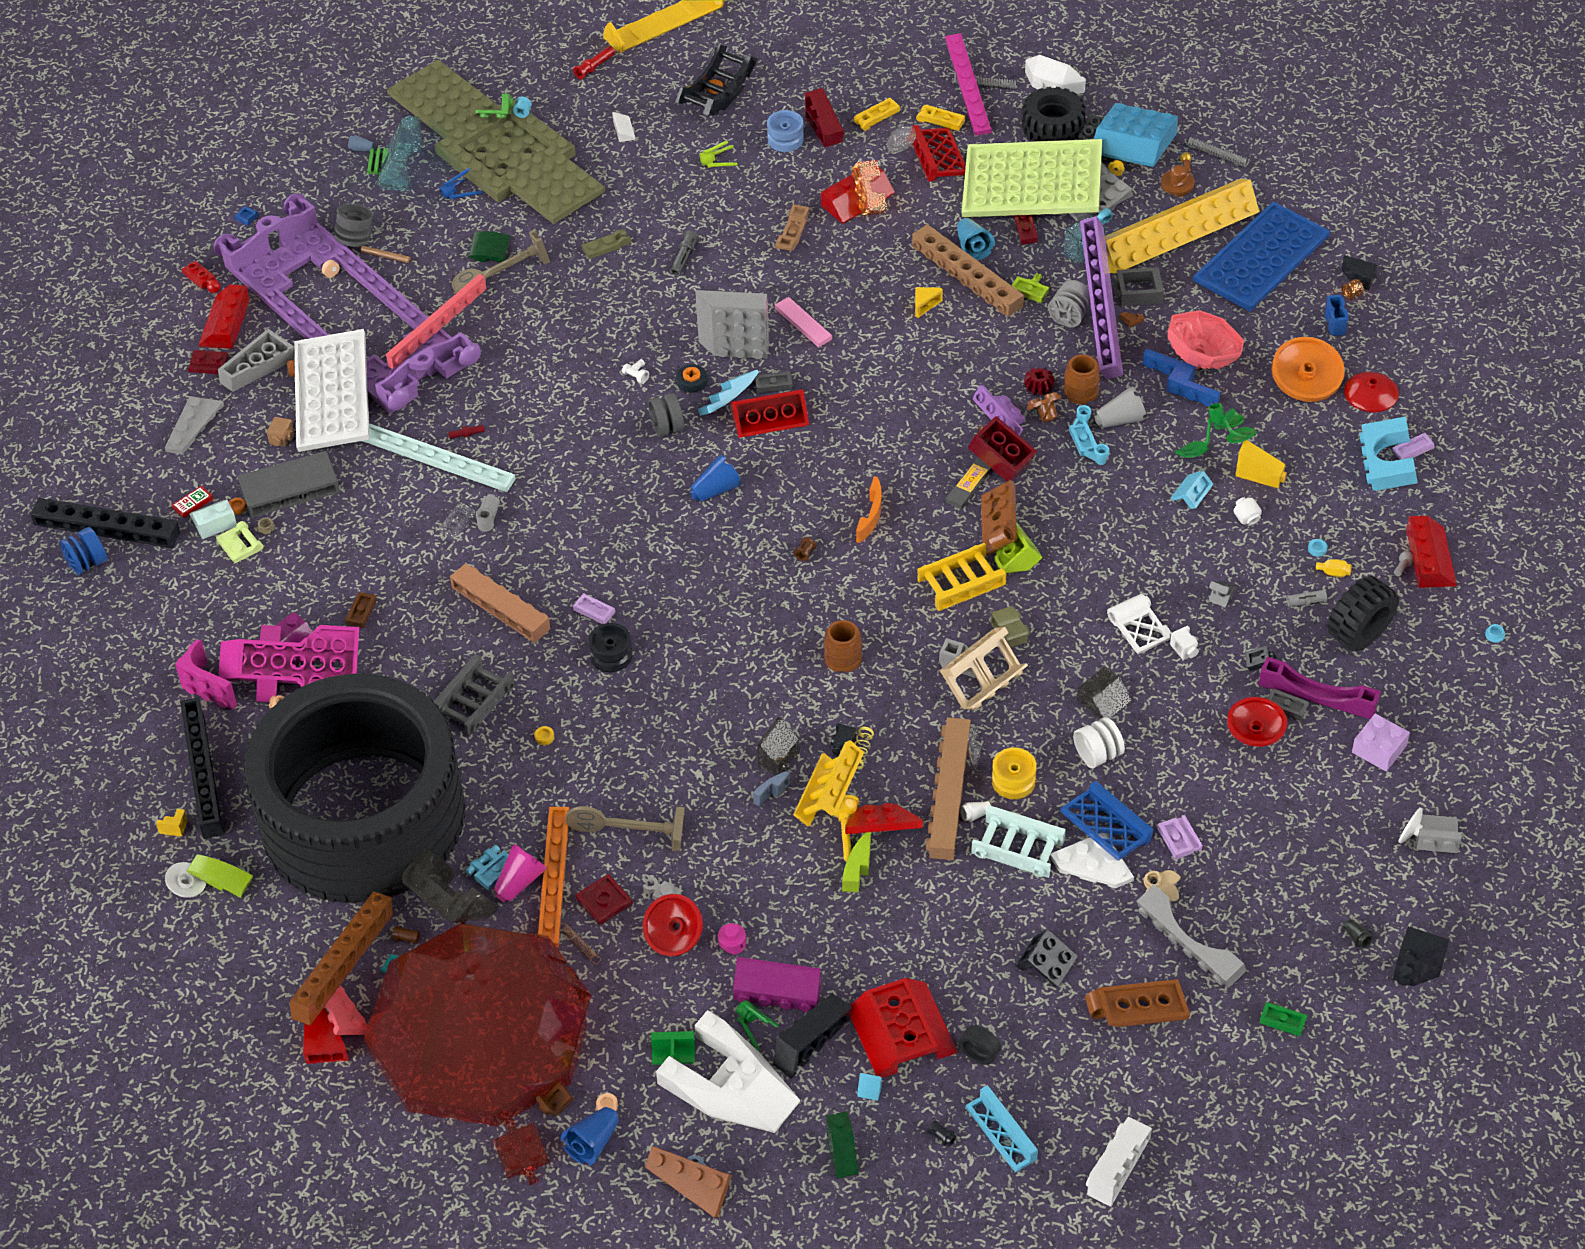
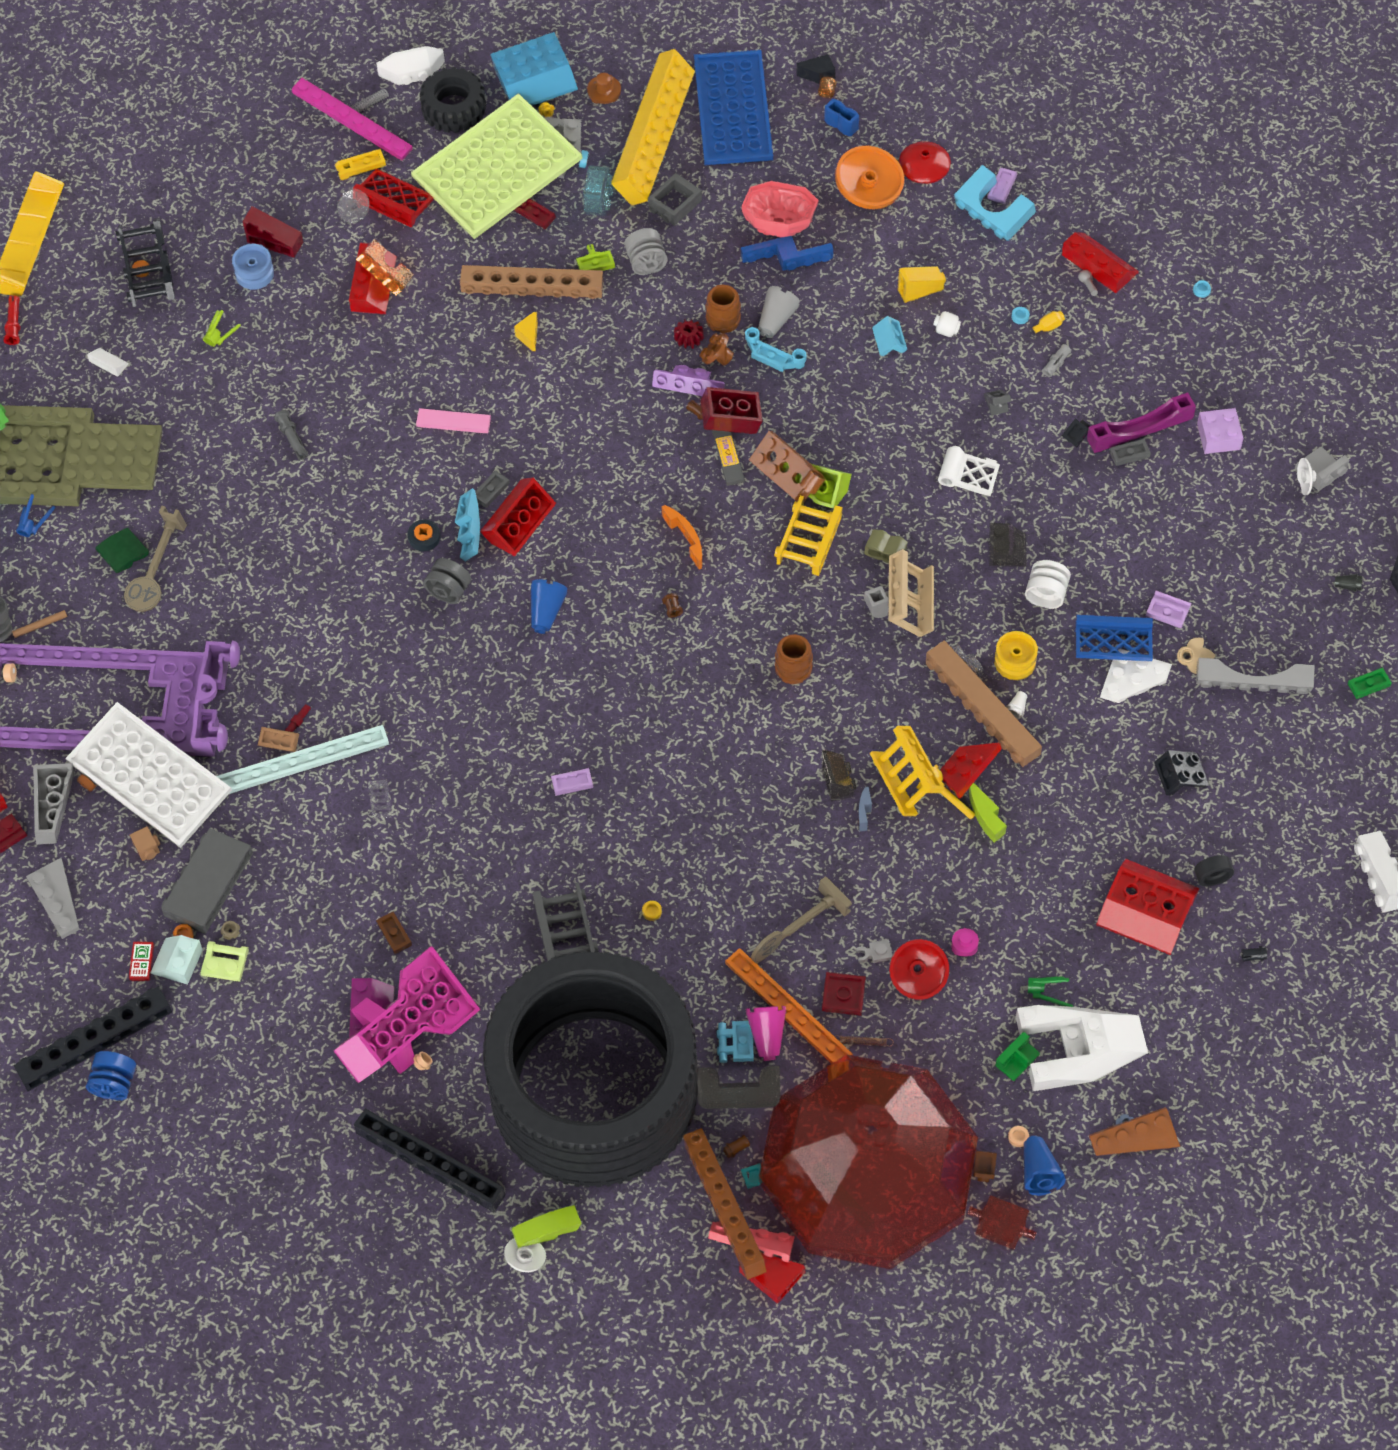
camera: 45 degrees left, 10 degrees up
(173, 825) = (458, 1222): yellow panel -> none
(201, 682) = (354, 1095): dark pink bracket -> none
(436, 321) = (168, 654): coral plate -> none
(439, 433) = (278, 739): none -> medium nougat plate
(486, 513) = (397, 772): light grey piece -> none
(500, 602) = (496, 836): nougat brick -> none
(522, 107) = (11, 405): medium azure wheel -> none
(606, 244) = (216, 475): olive hinge -> none
(610, 647) = (625, 801): black wheel -> none
(641, 376) = (368, 565): white piece -> none
(733, 323) = (420, 464): light grey slope -> none
(777, 984) = (1038, 948): magenta slope -> none
(794, 228) = (354, 347): medium nougat slope -> none
(810, 1034) = (1098, 963): black wedge -> none
(841, 1144) = (1209, 1020): dark green slope -> none
(843, 734) = (871, 730): black brick -> none
(862, 735) = (883, 710): light yellow piece -> none
(869, 1086) = (1174, 964): medium azure slope -> none
(876, 113) = (305, 197): yellow plate -> none
(975, 239) = (508, 250): dark azure cone -> none
(1008, 1124) = (1287, 909): medium azure fence -> none
(1018, 824) = (1071, 686): light aqua fence -> none
(1090, 127) = (491, 90): dark grey slope -> none
(1101, 298) = (668, 228): medium lavender brick -> none
(1105, 1002) = (1256, 766): dark orange hinge -> none
(1131, 319) = (695, 230): dark orange tile -> none
(1184, 643) = (1016, 462): white brick -> none
(1185, 158) = (588, 65): piece -> none
(1209, 147) = (602, 40): light grey piece -> none
(1221, 421) = (858, 262): green plant -> none
(1258, 714) = (1132, 474): red dish -> none
(1363, 613) = (1120, 342): black tyre -> none

